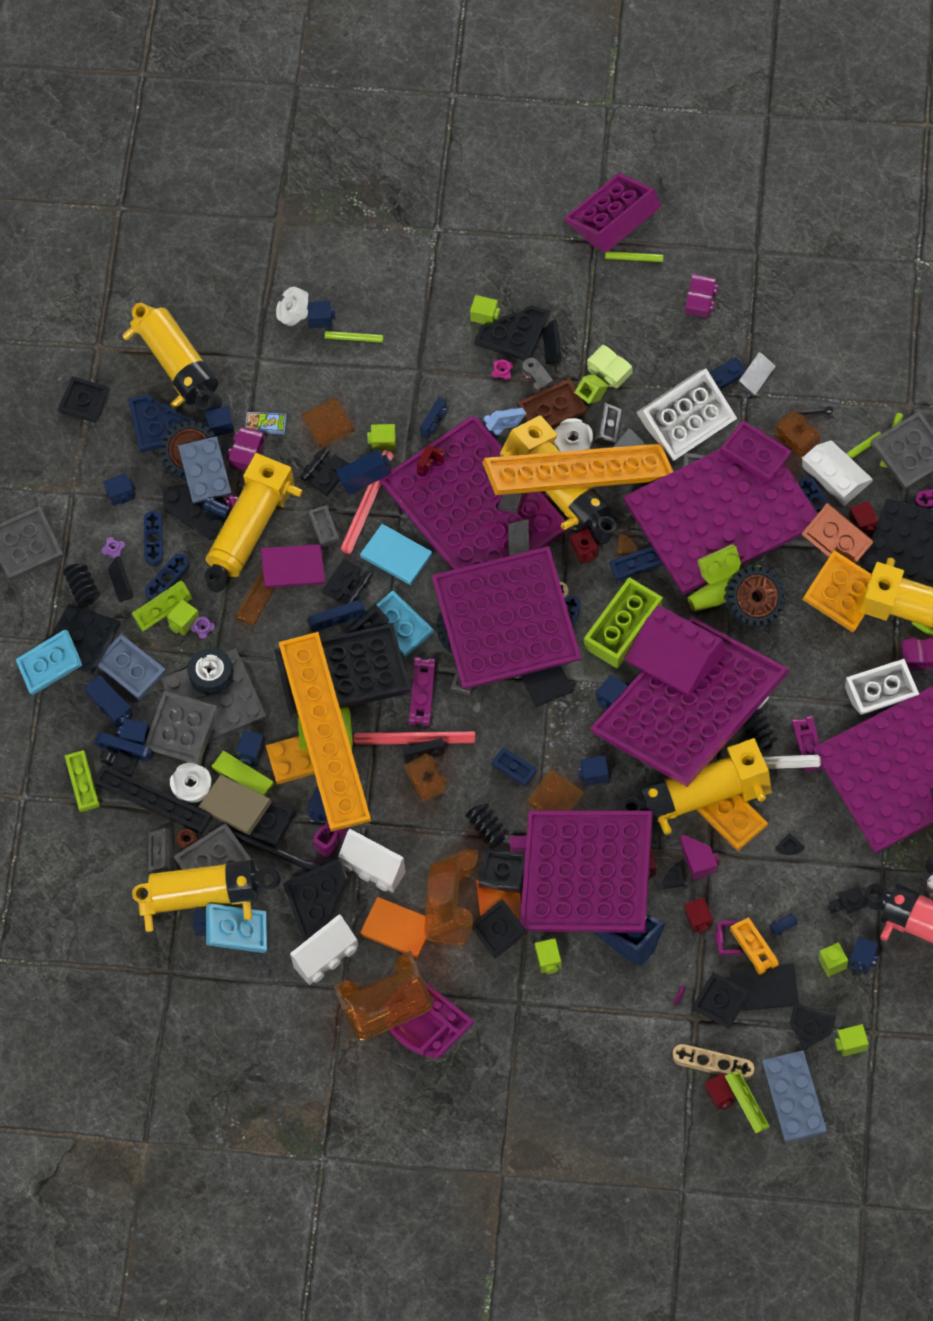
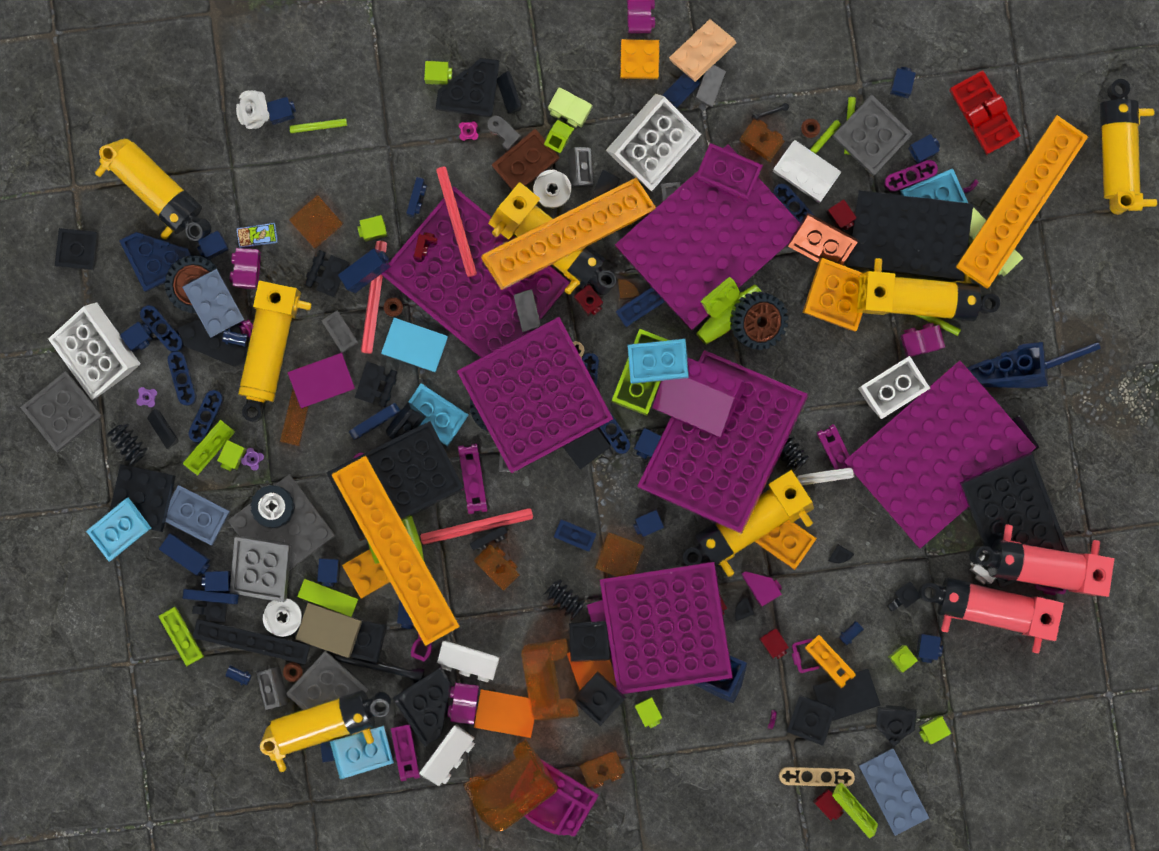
camera: 20 degrees left, 20 degrees up
(73, 493) = (94, 350): none -> white slope
(134, 833) = (238, 675): none -> dark blue pin
(147, 480) = (156, 314): none -> dark blue beam
(281, 941) = (405, 752): none -> magenta plate
(356, 905) = (464, 703): none -> magenta brick
(384, 509) = (389, 302): none -> copper plate
(468, 445) = (456, 221): none -> coral axle
(493, 995) = (608, 760): none -> clear orange brick
(504, 419) = (480, 190): light blue plate -> none
(575, 682) = (622, 438): none -> dark blue beam
(640, 608) = (658, 361): none -> medium azure tile
(691, 338) = (639, 59): none -> light orange plate
(756, 340) = (702, 50): none -> light nougat plate
(850, 428) = (810, 122): none -> copper plate

